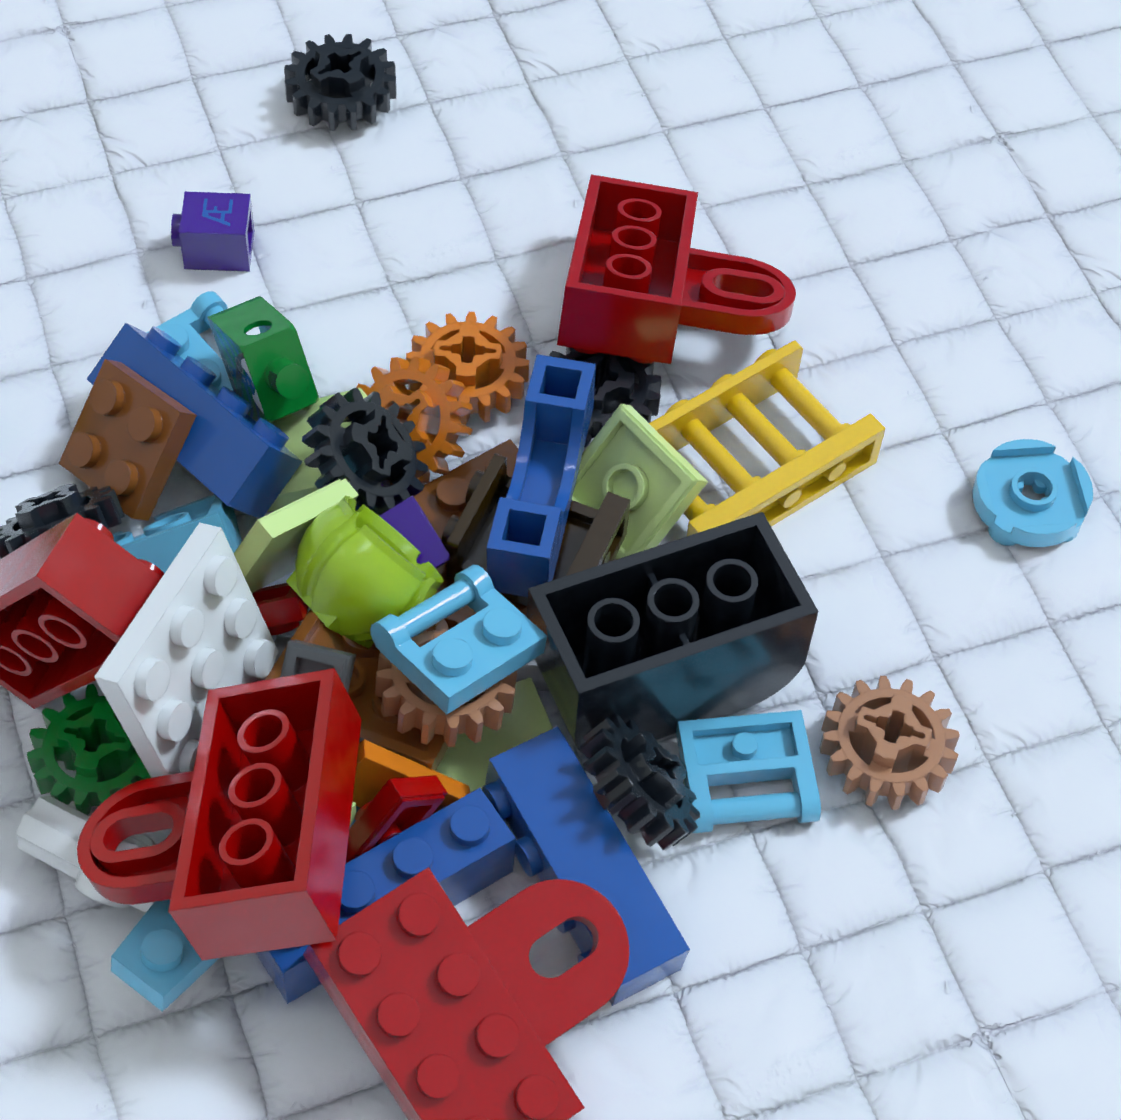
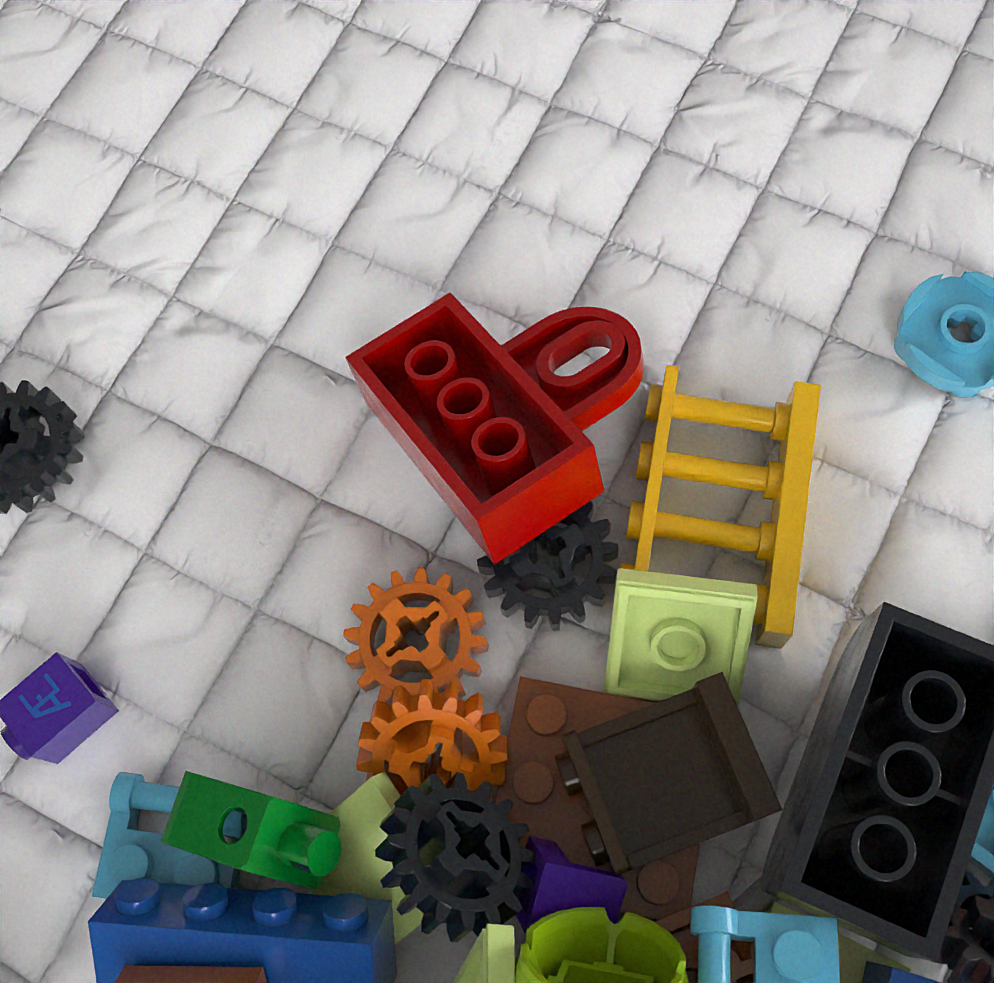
camera: 30 degrees left, 15 degrees up
(550, 450) = (650, 755): blue arch -> none

